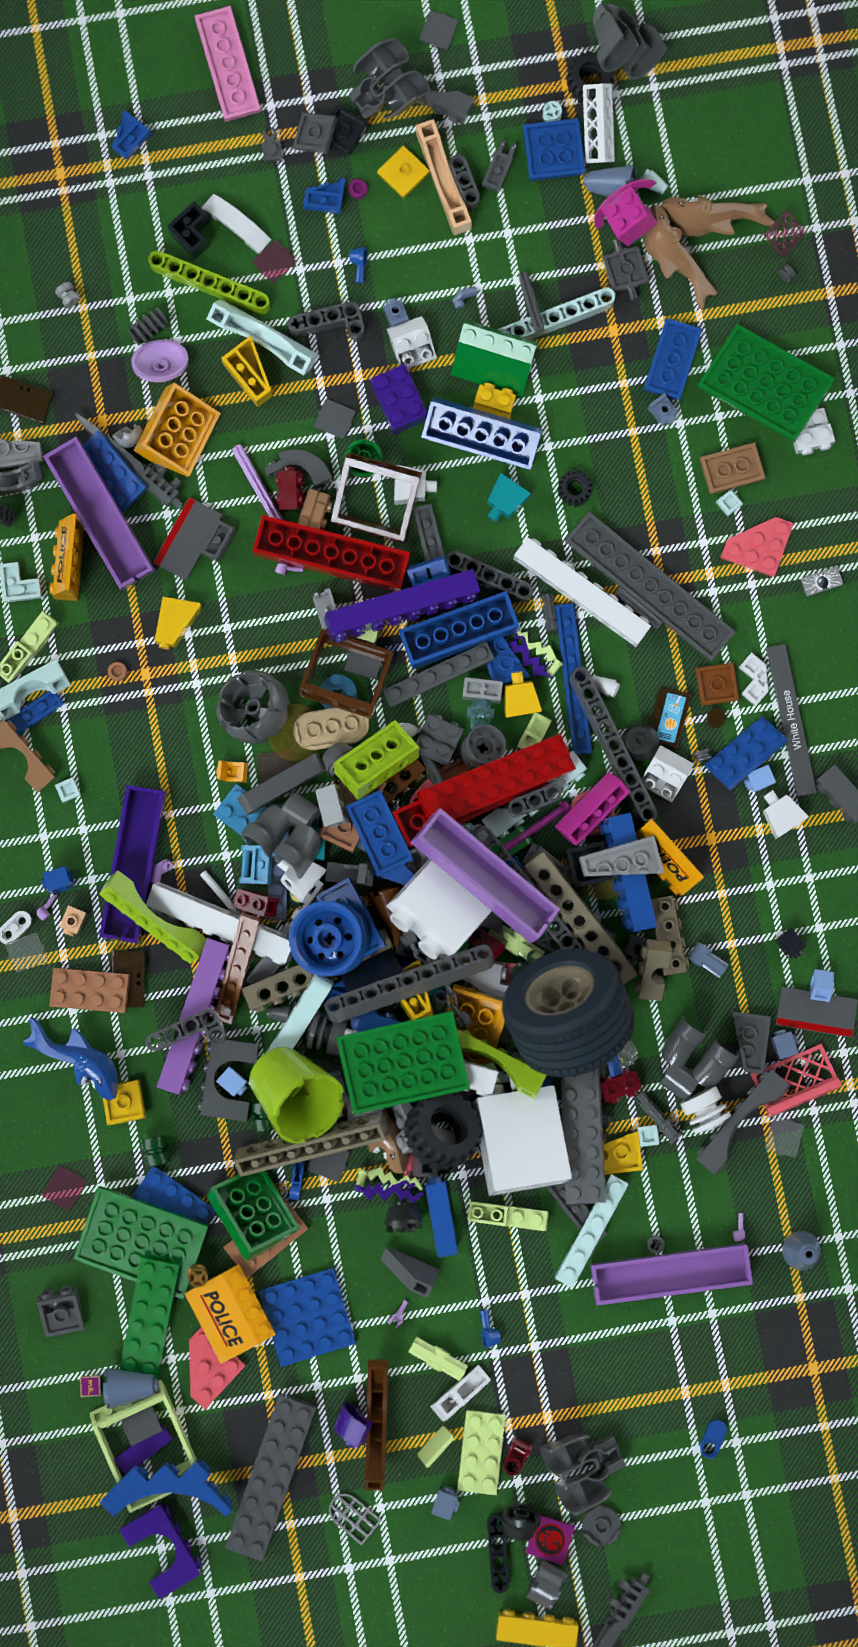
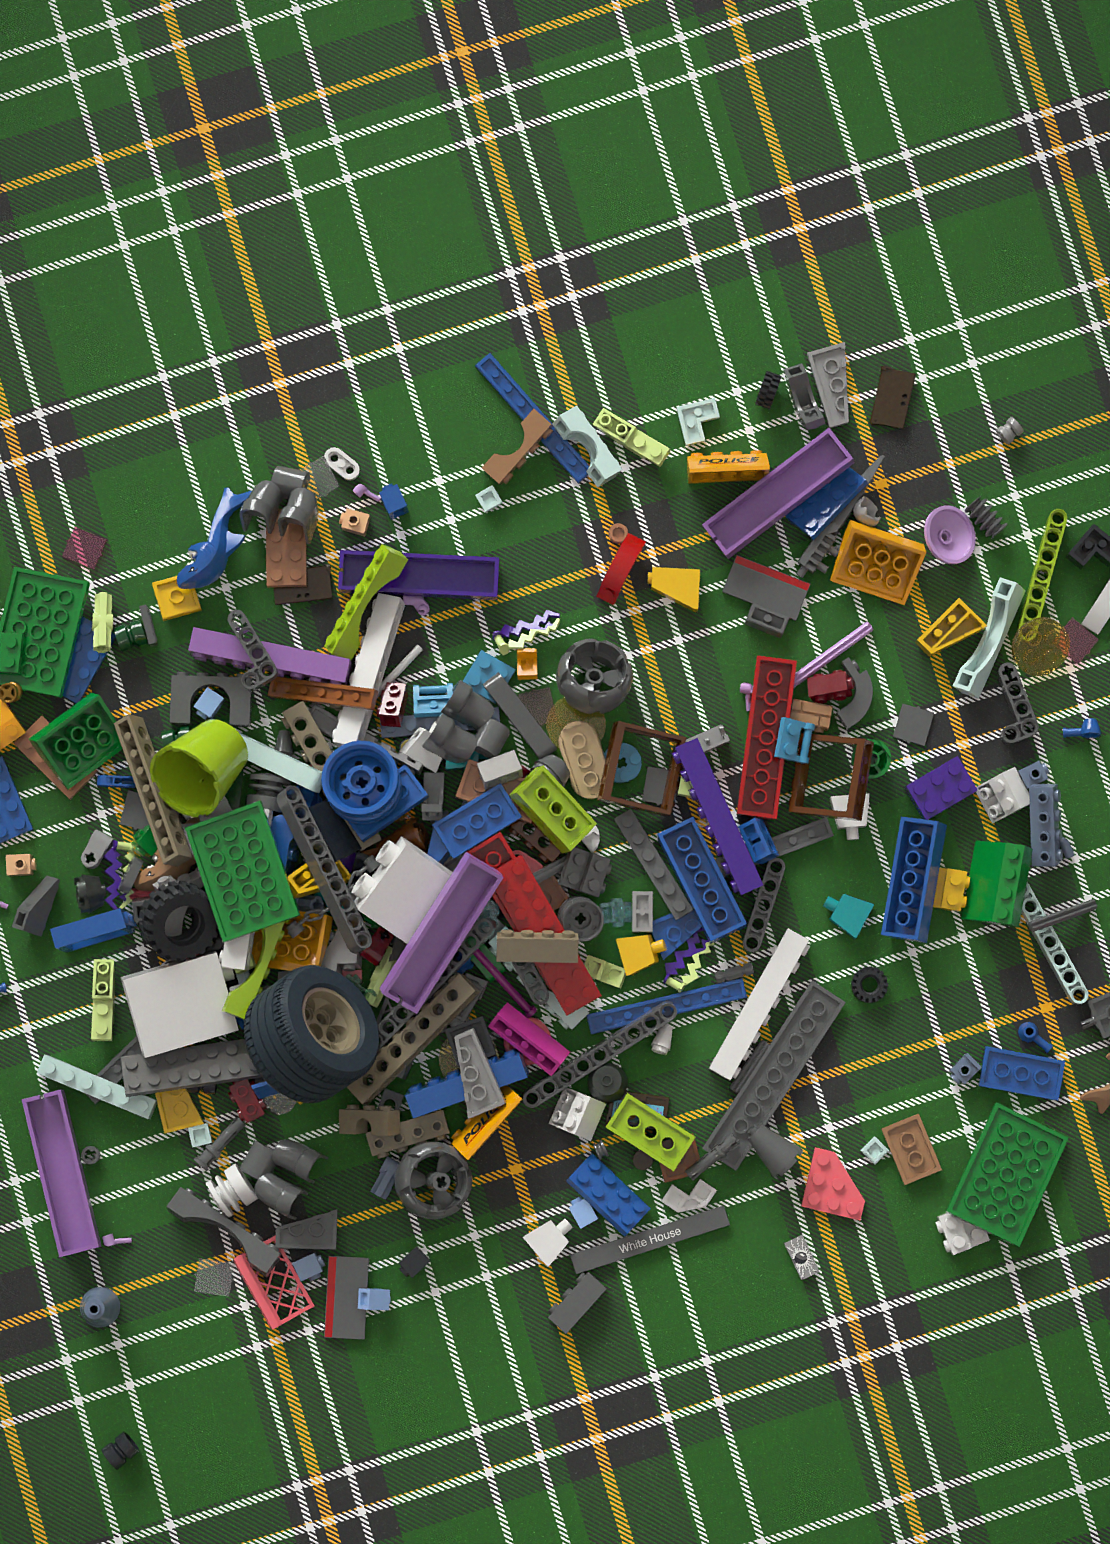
camera: 85 degrees right, 0 degrees up
(28, 983) = (267, 496): none -> dark grey piece
(140, 1177) = (102, 622): none -> yellowish green piece
(148, 1132) = (148, 625): none -> dark grey tile
(152, 671) = (620, 568): none -> red arch
(198, 761) = (533, 628): none -> piece
(276, 290) = (1040, 646): none -> clear yellow tile
(335, 530) = (789, 737): none -> dark azure plate
(358, 1205) = (98, 846): none -> light grey piece
(360, 1157) = (144, 842): none -> green brick
(367, 1283) = (20, 864): none -> light nougat brick
(390, 1175) = (130, 875): none -> dark grey beam
(444, 306) = (1045, 825): none -> sand blue brick
(509, 786) = (537, 947): none -> dark tan brick
(636, 354) = (1034, 1037): none -> blue bar
(690, 691) = (638, 1138): none -> lime brick
(719, 648) = (720, 1150): none -> dark grey pin
(722, 592) = (773, 1149): none -> dark grey cone
(730, 903) = (444, 1203): none -> dark grey wheel

